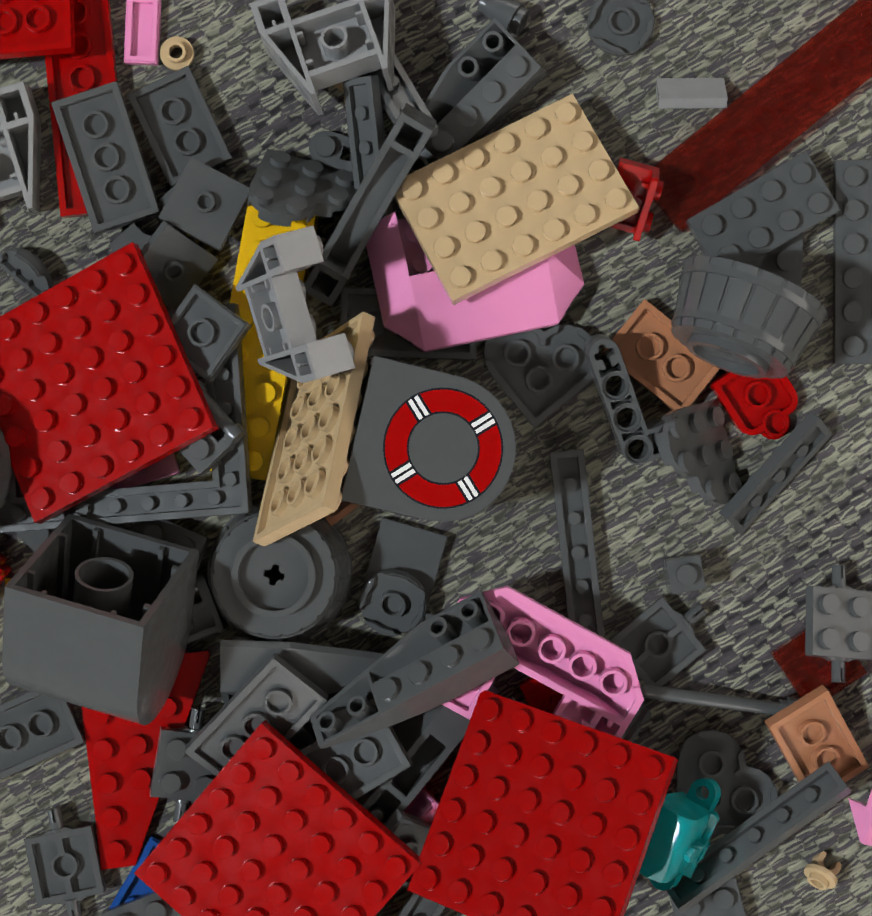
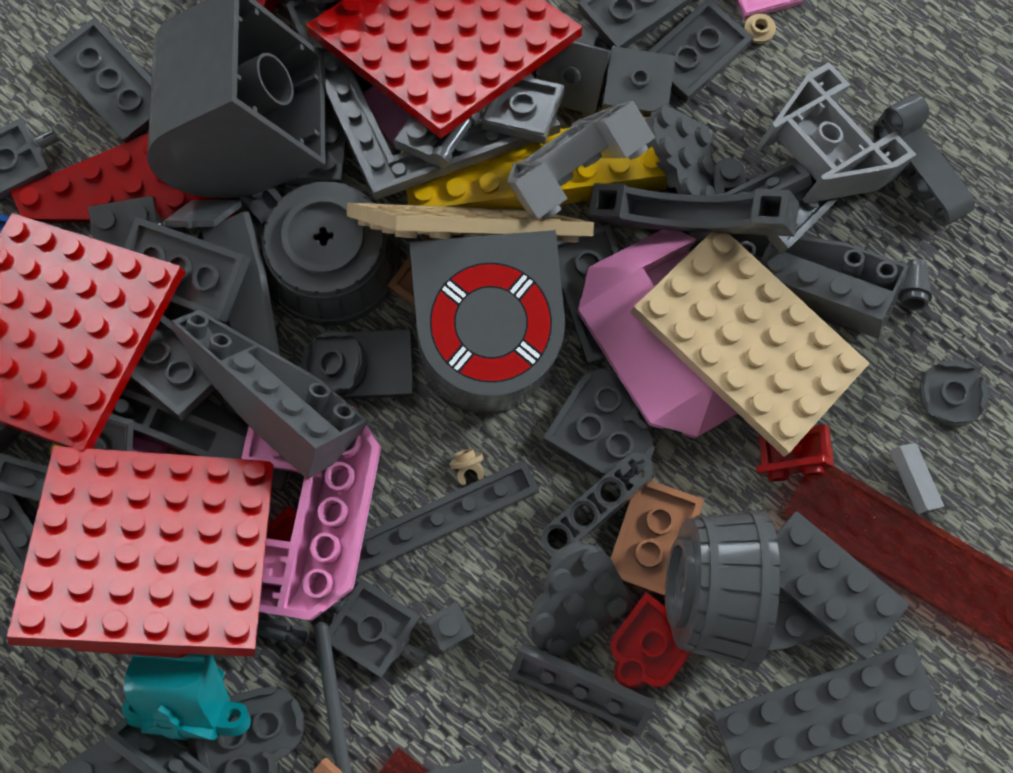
camera: 70 degrees right, 15 degrees down
(201, 684) = (203, 213): none -> dark grey piece
(531, 505) = (467, 460): none -> tan plate

